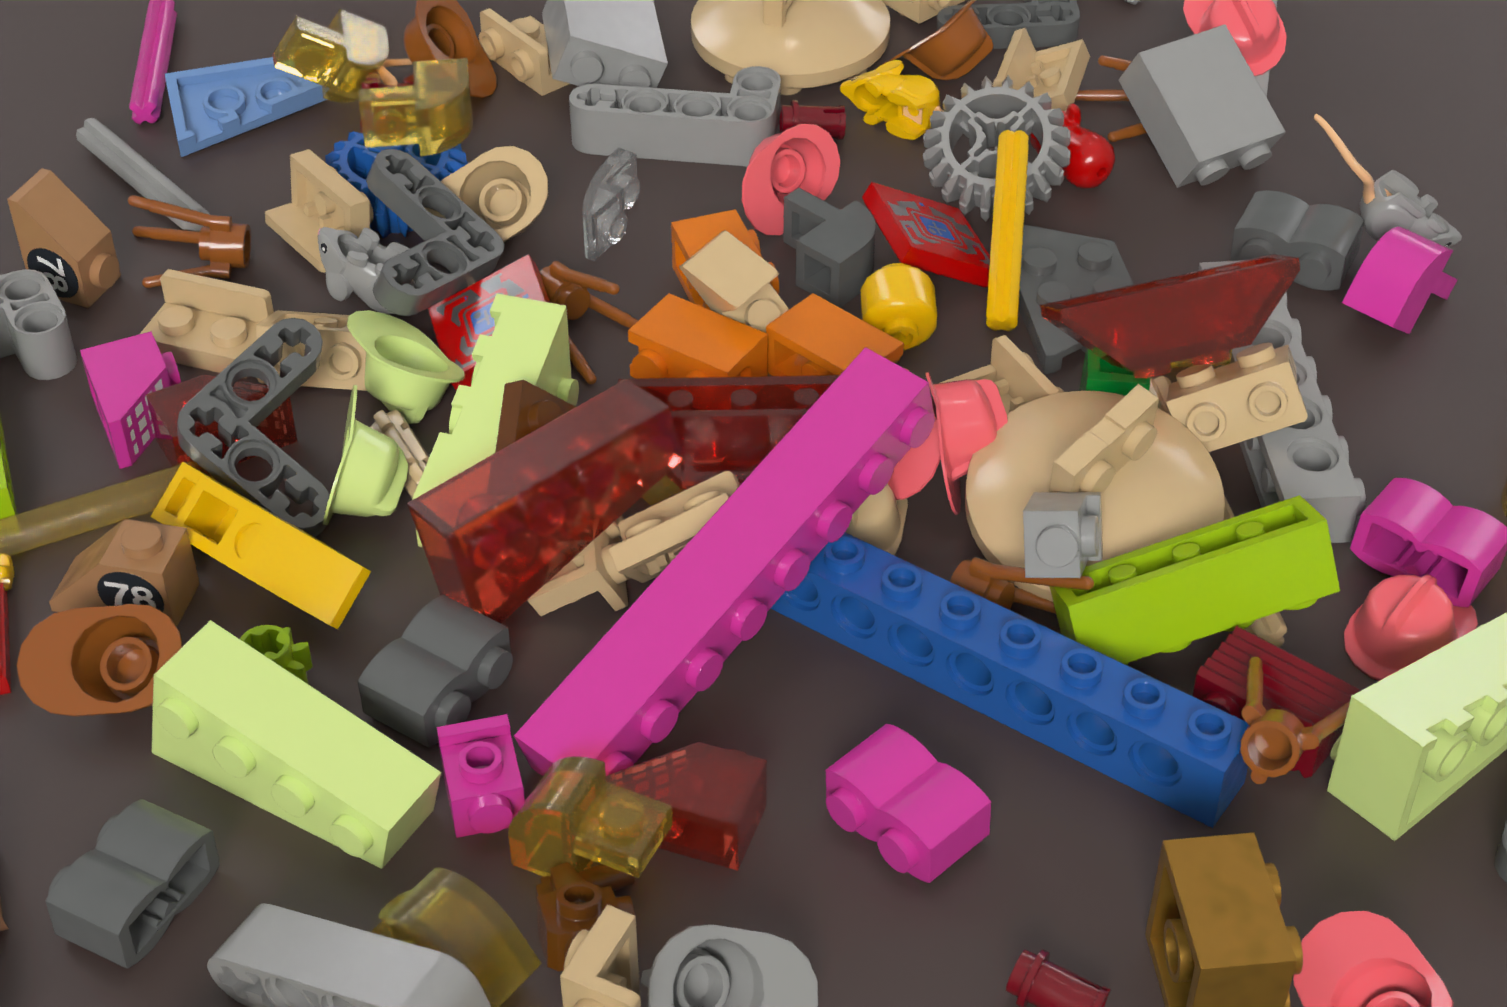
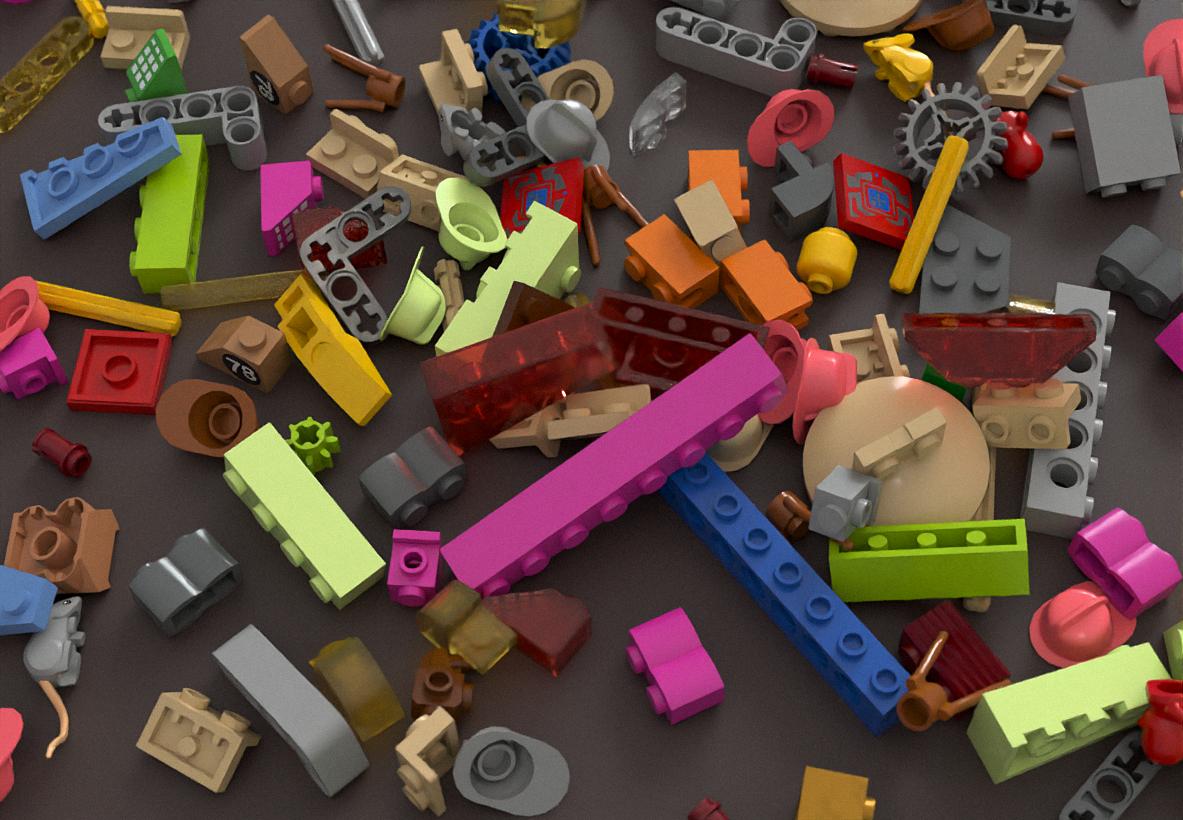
camera: 20 degrees right, 15 degrees up
(497, 230) = (567, 131): none -> light grey piece

